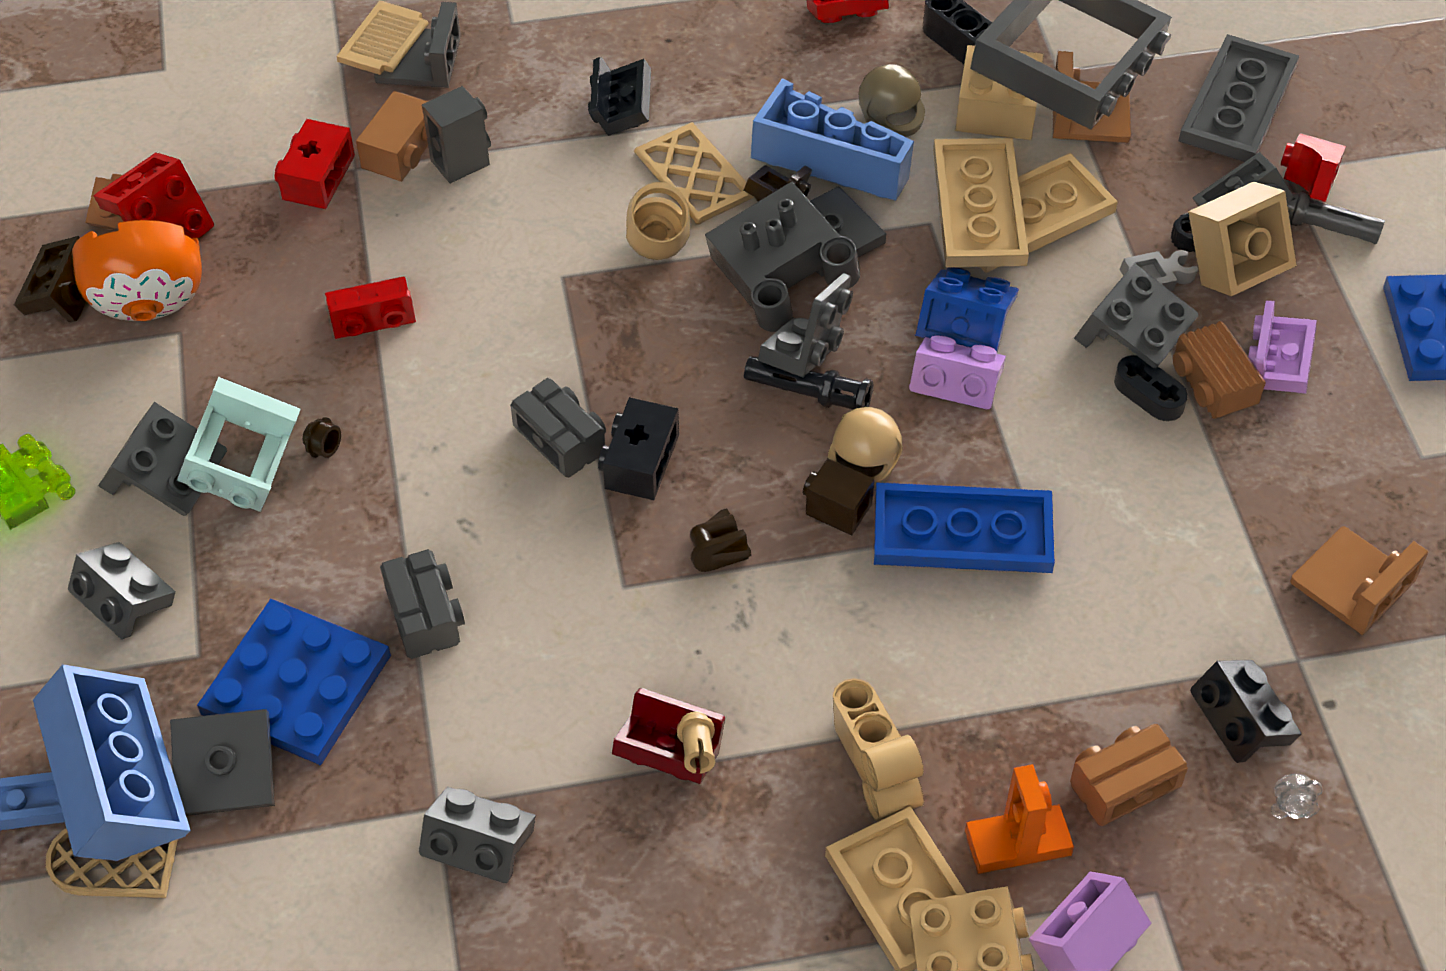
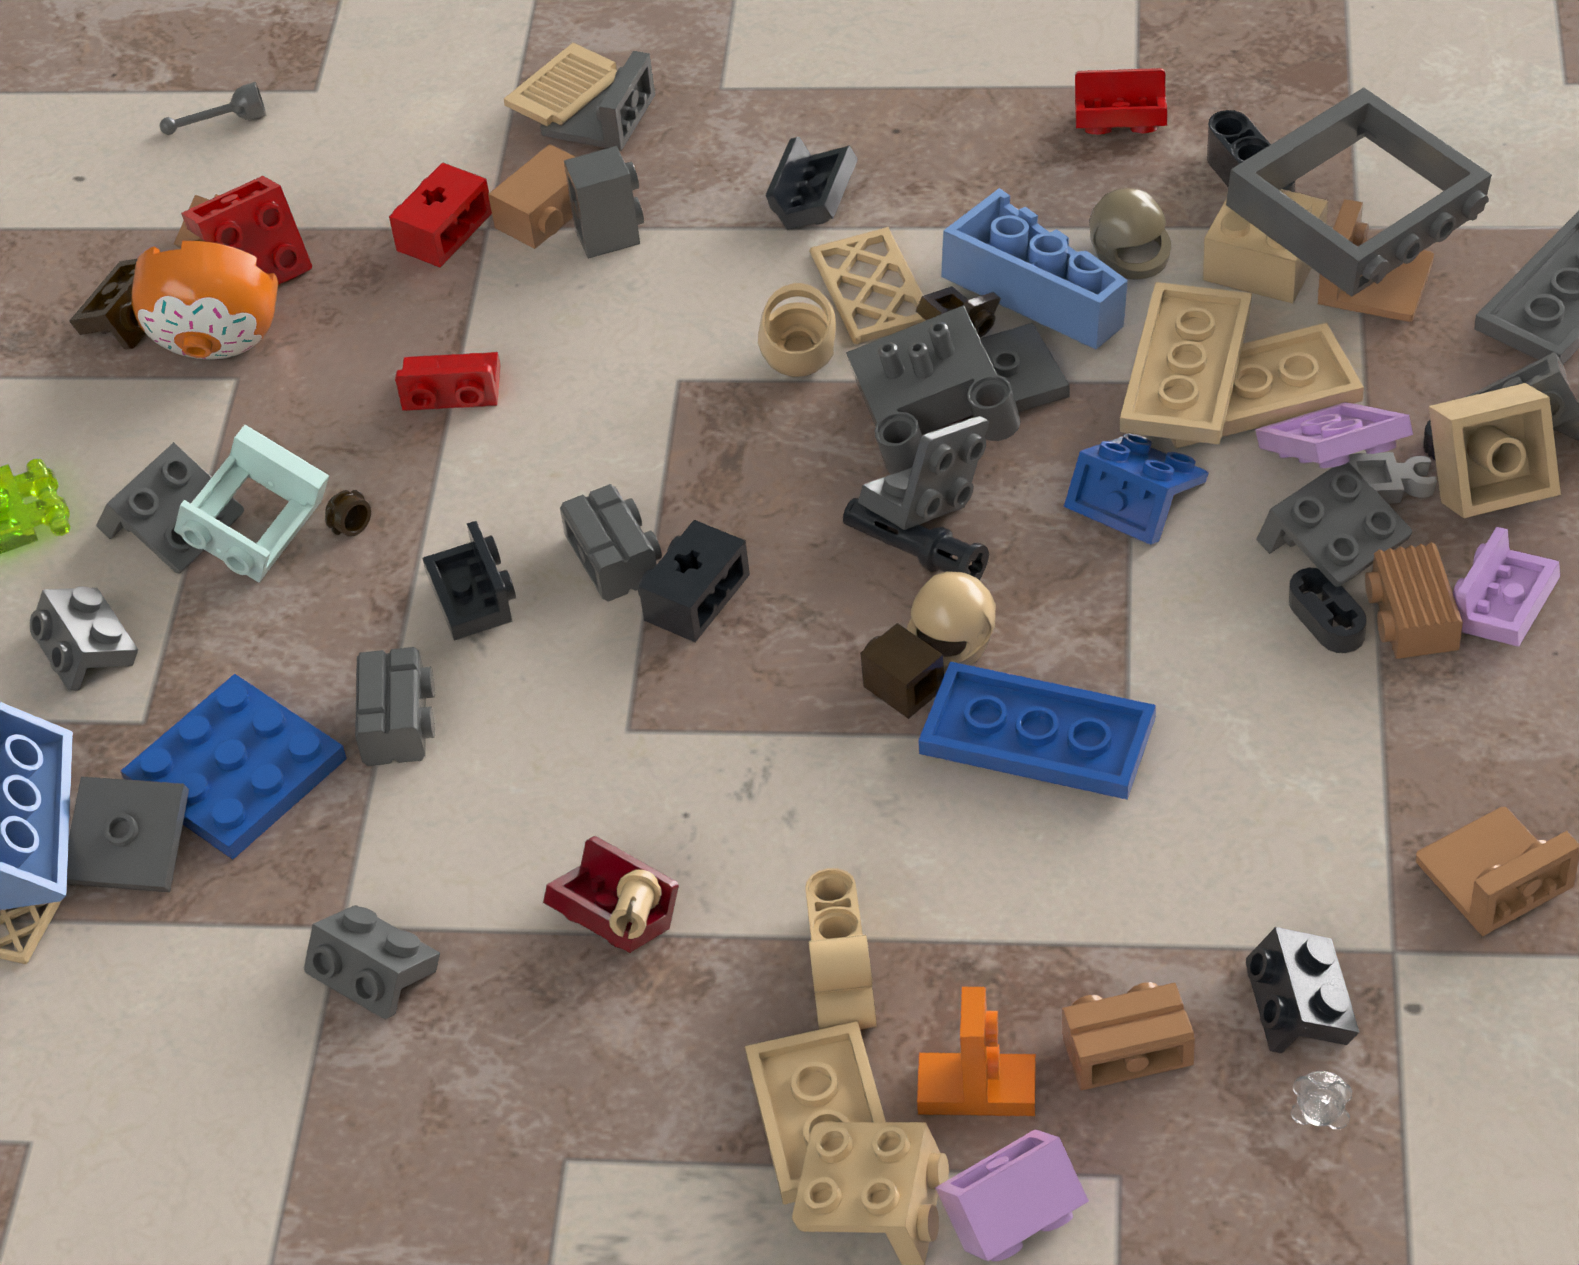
camera: 20 degrees right, 5 degrees down
(108, 88) = (244, 102): none -> dark grey hinge
(453, 483) = (470, 586): none -> black bracket
(718, 543) = (746, 700): dark brown piece -> none
(956, 371) = (1095, 553): lavender bracket -> none
(1116, 243) = (1334, 433): none -> lavender plate

